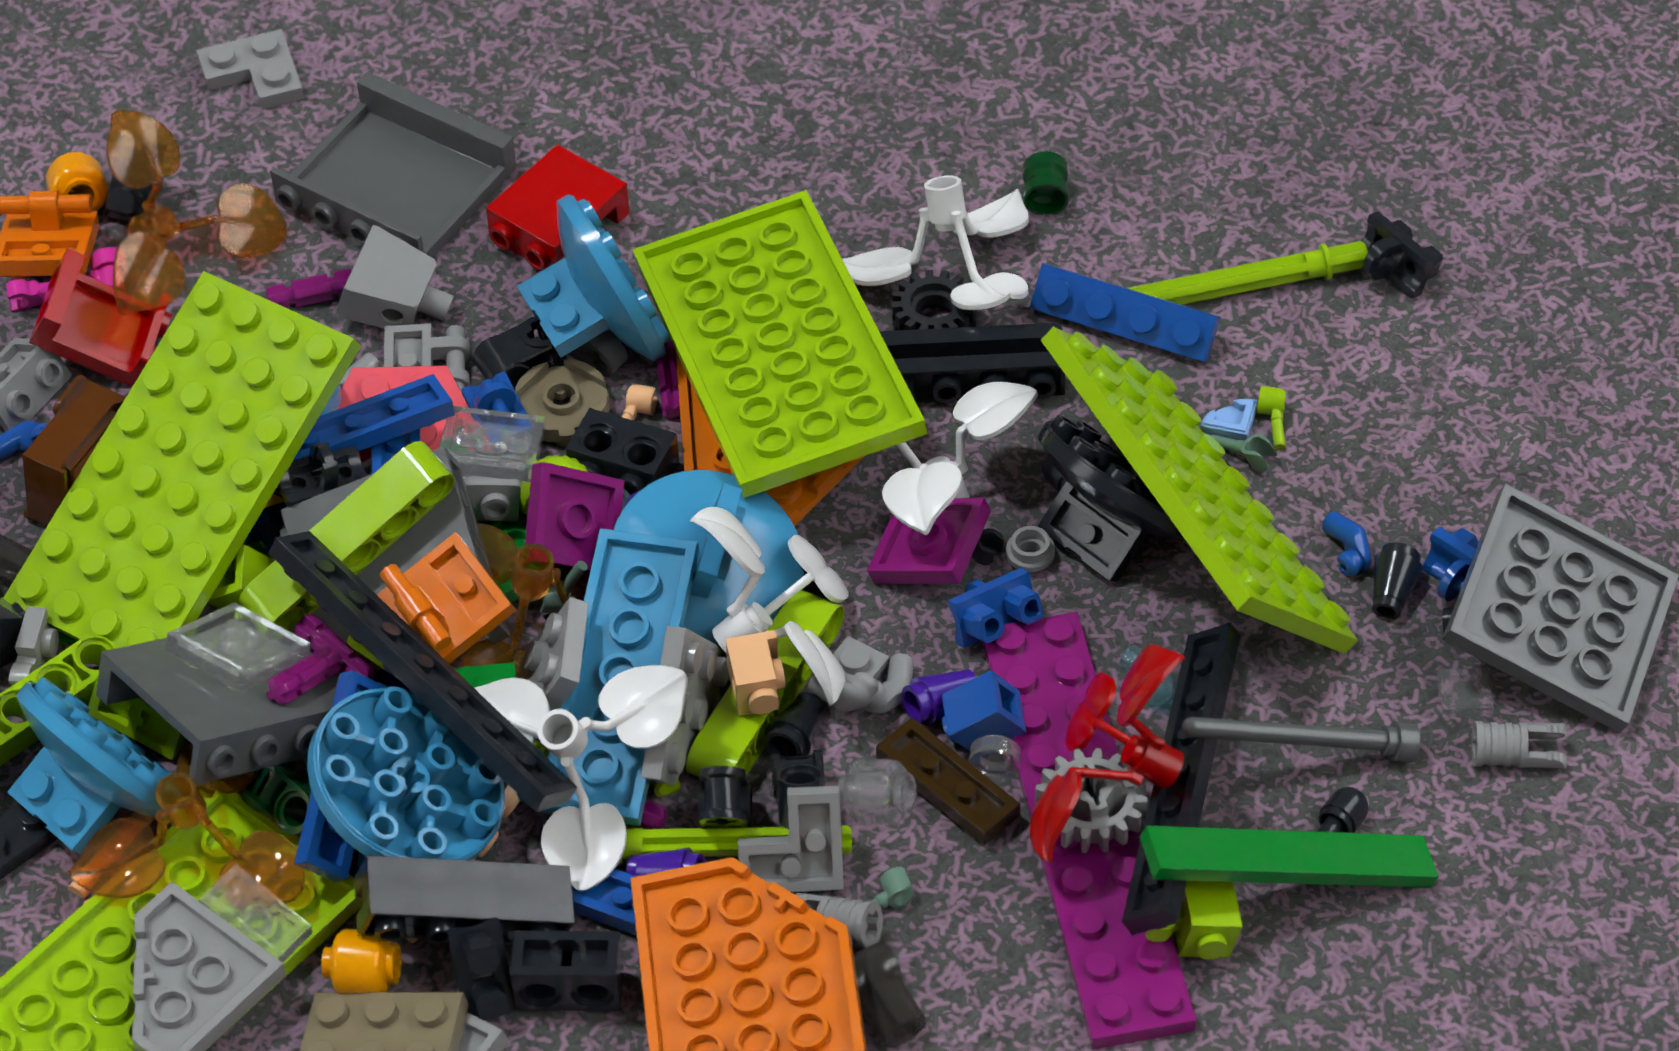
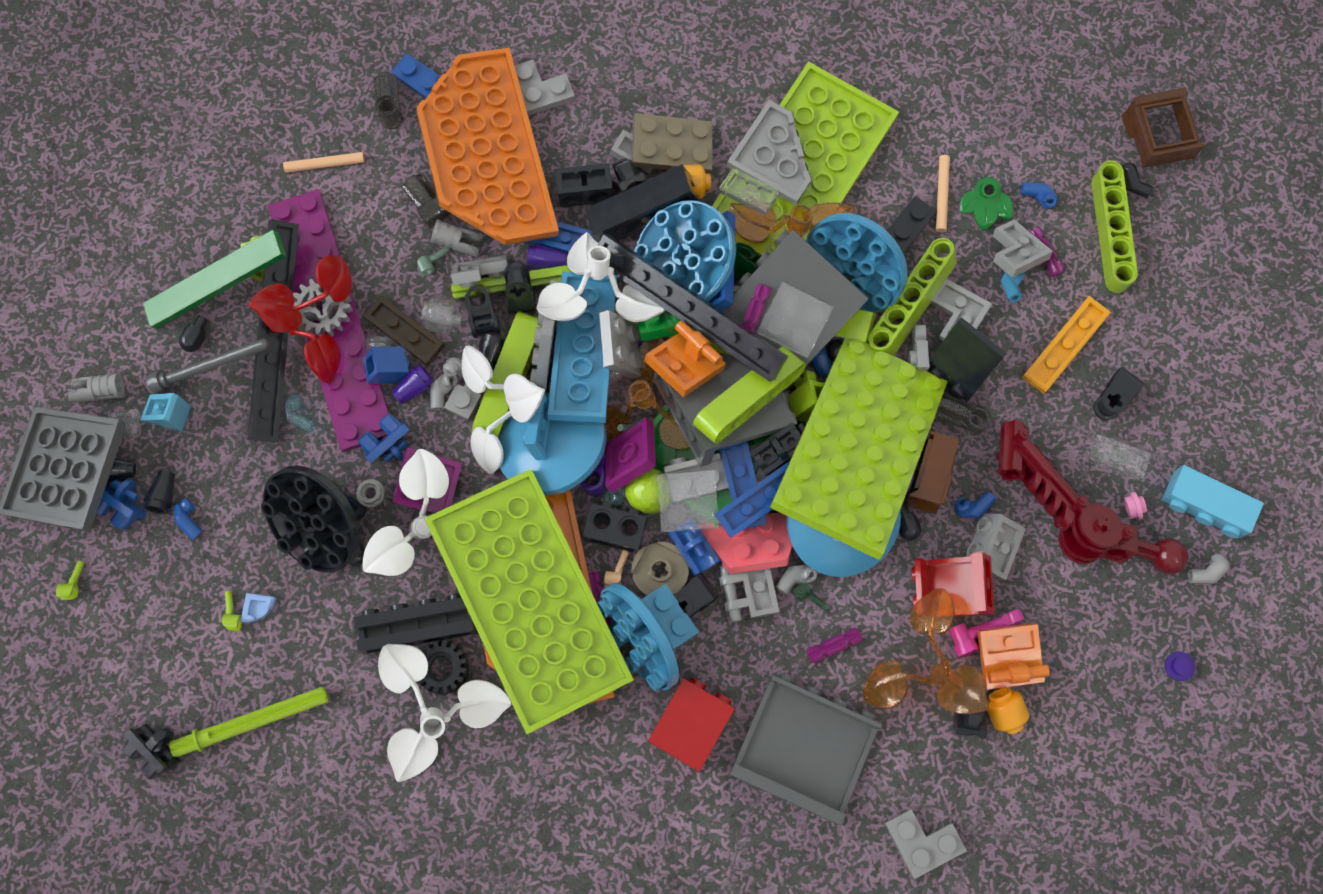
camera: 170 degrees right, 25 degrees up
(391, 284) = (782, 642): light grey torso -> none
(755, 672) = (509, 357): light nougat brick -> none
(1045, 183) = (378, 787): dark green wheel -> none
(1125, 312) = (322, 679): blue plate -> none
(1201, 492) = (266, 511): lime plate -> none
(1252, 448) = (249, 583): sand green hand -> none
(1388, 691) = (166, 411): none -> medium azure slope
(1549, 466) = (69, 590): none -> lime hand

